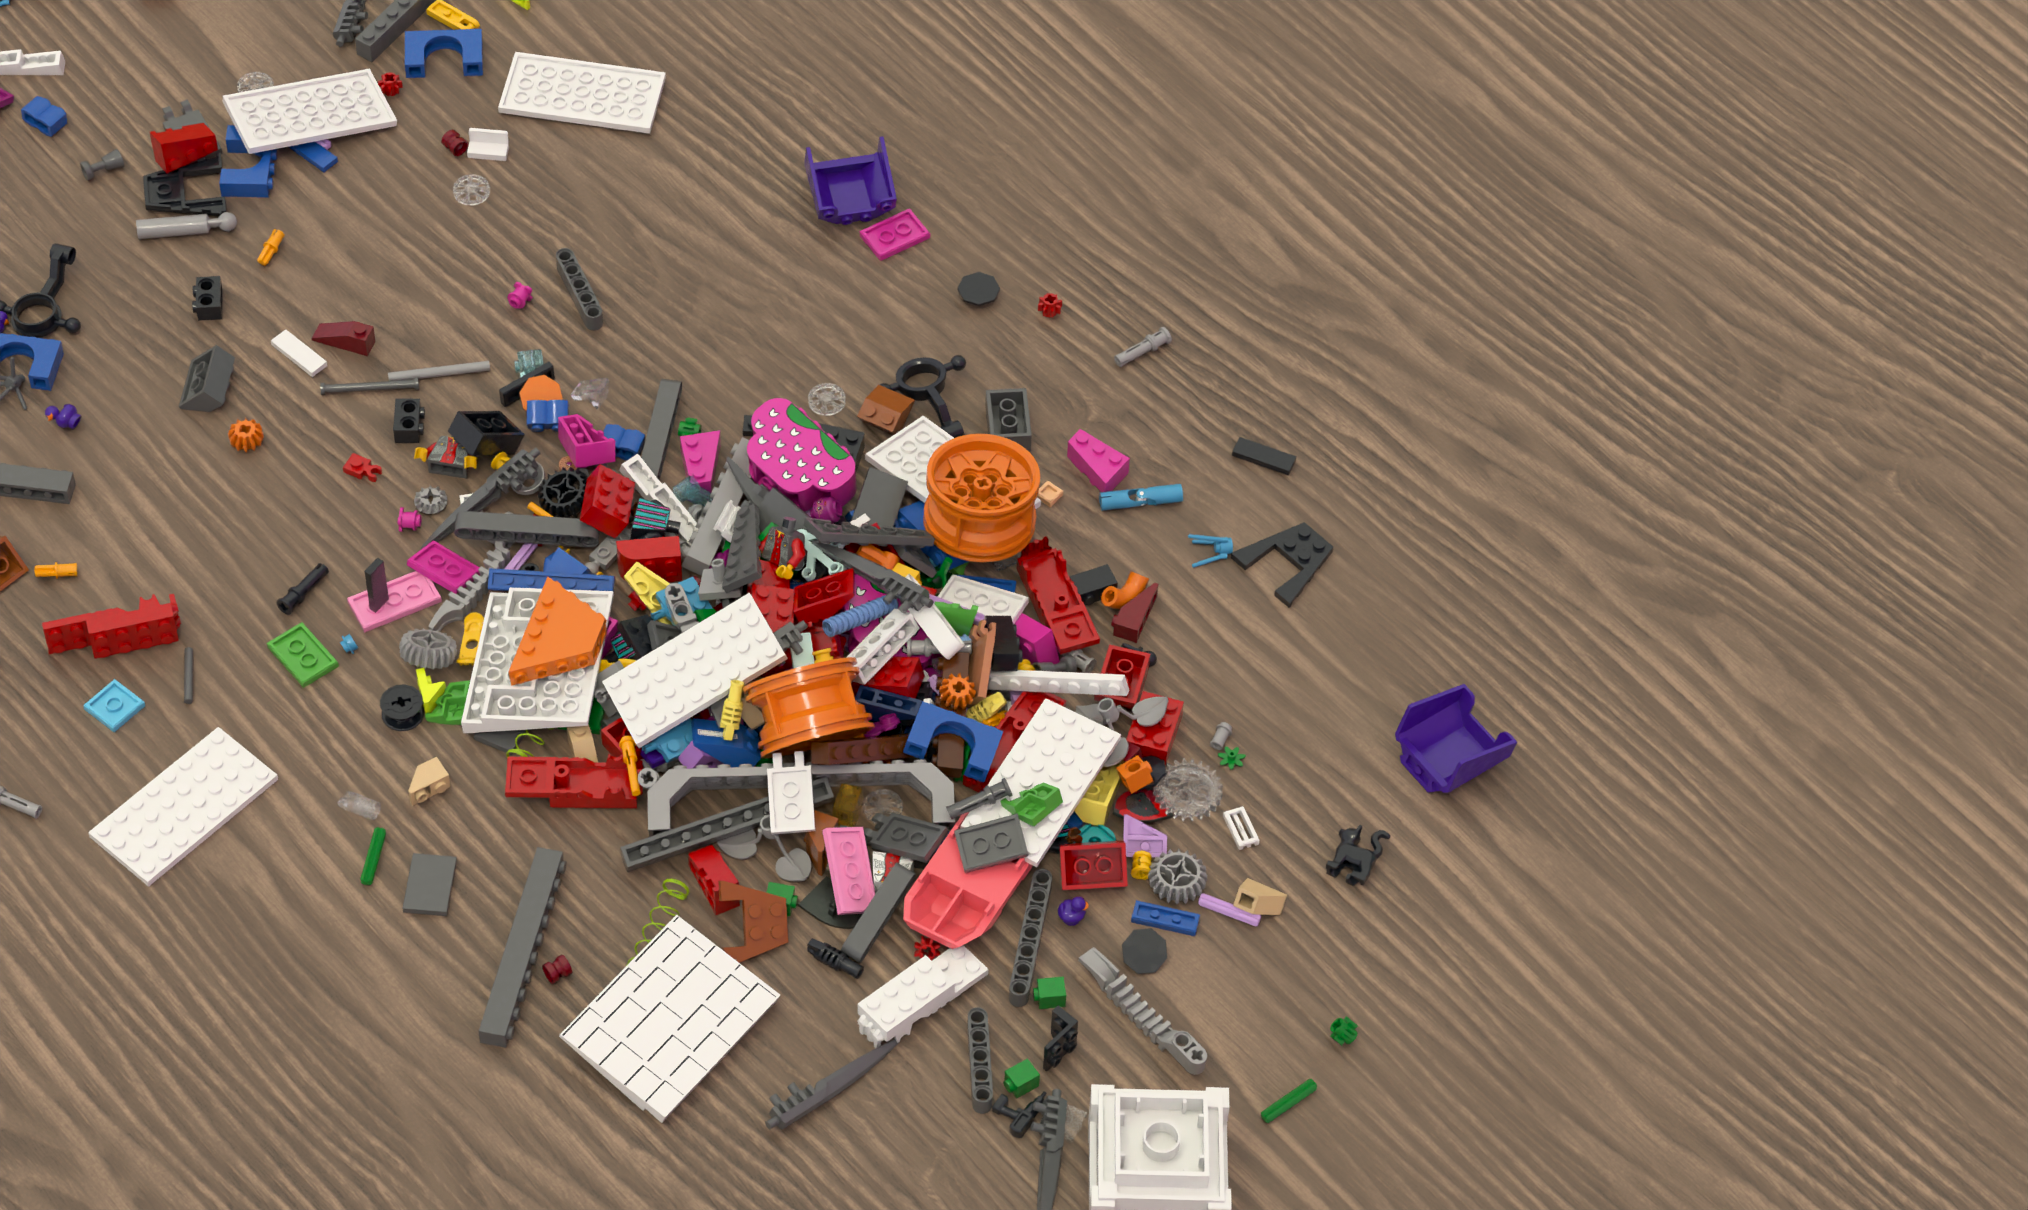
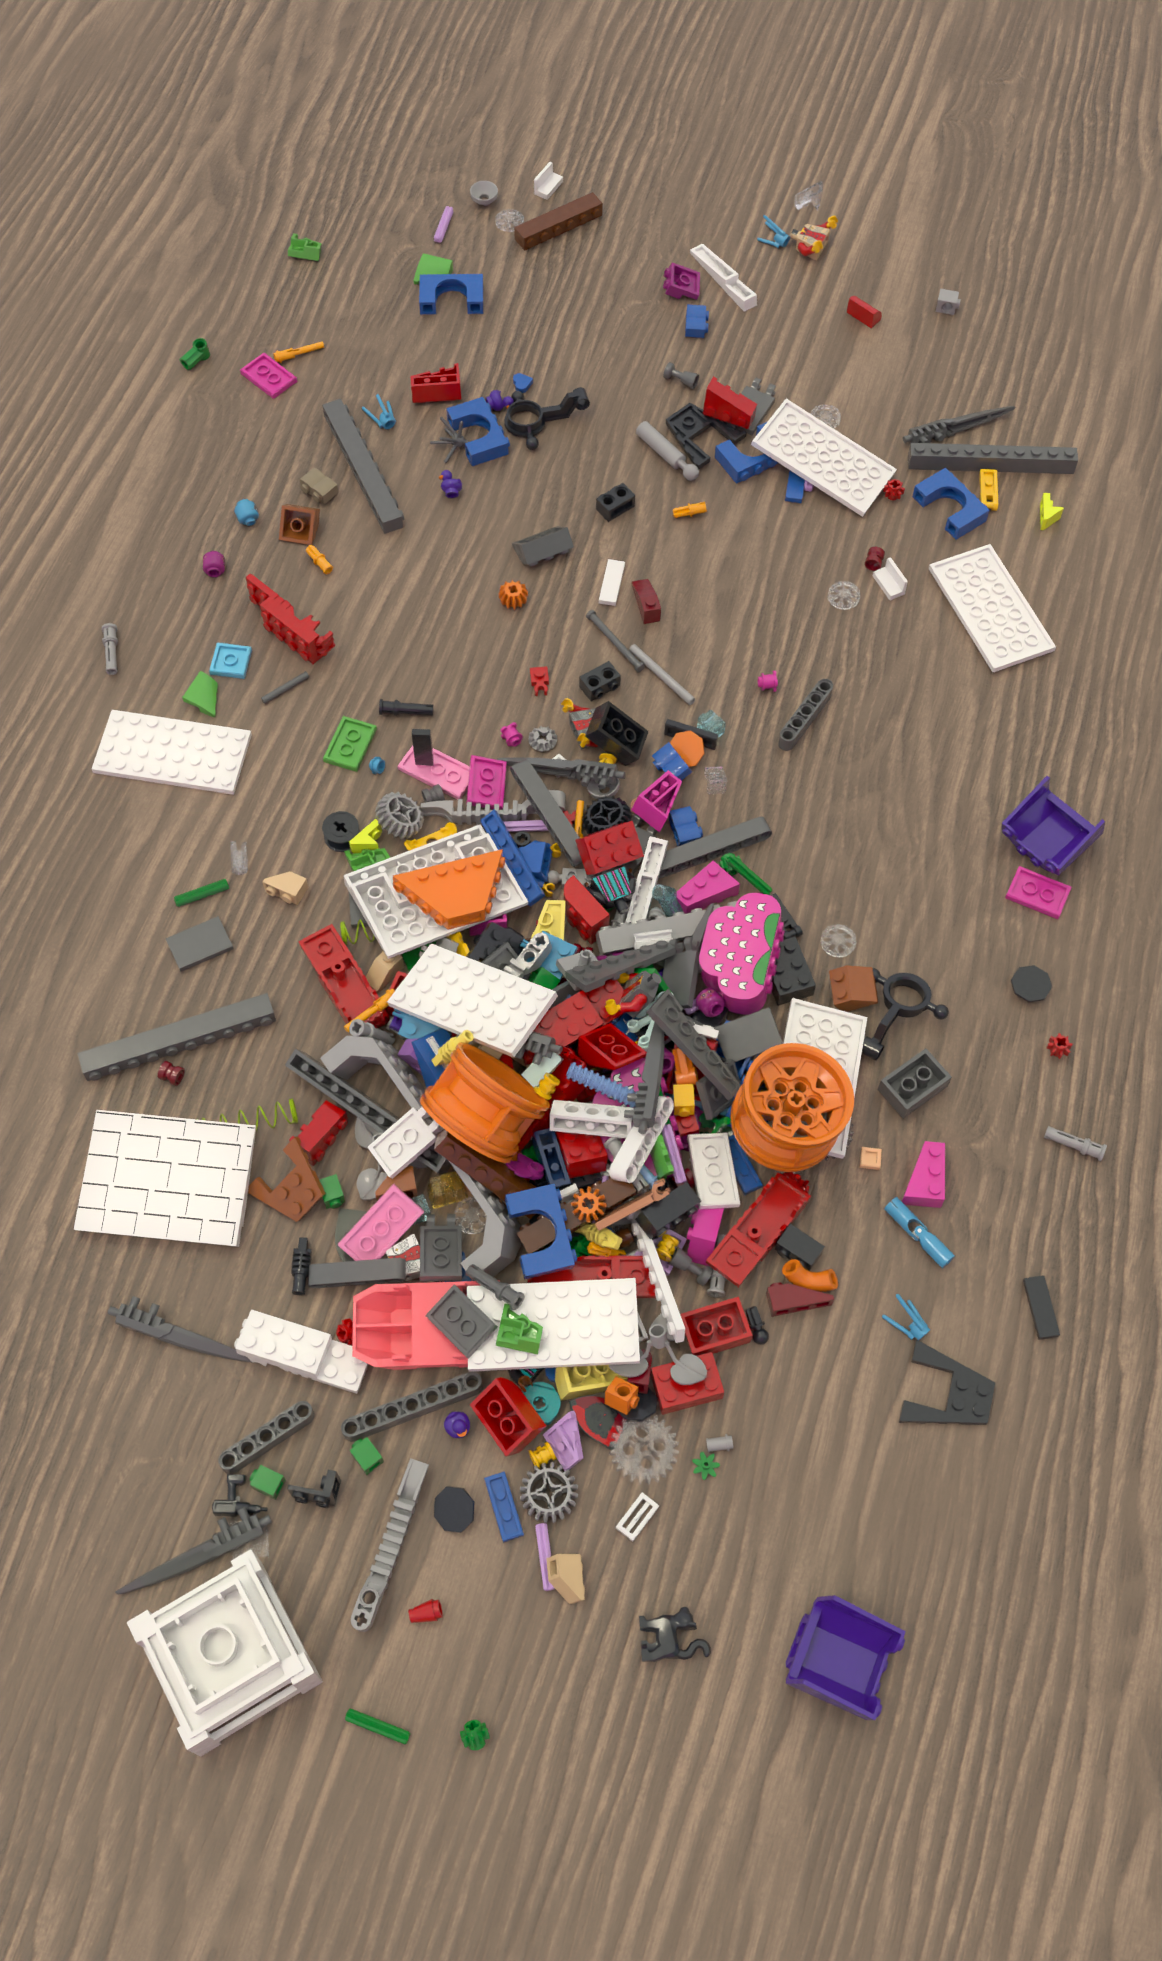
camera: 60 degrees right, 10 degrees up
(138, 746) = (203, 694): none -> bright green slope
(423, 615) = (433, 794): none -> dark grey wheel
(714, 420) = (749, 875): none -> green axle
(1218, 1015) = (426, 1612): none -> red cone

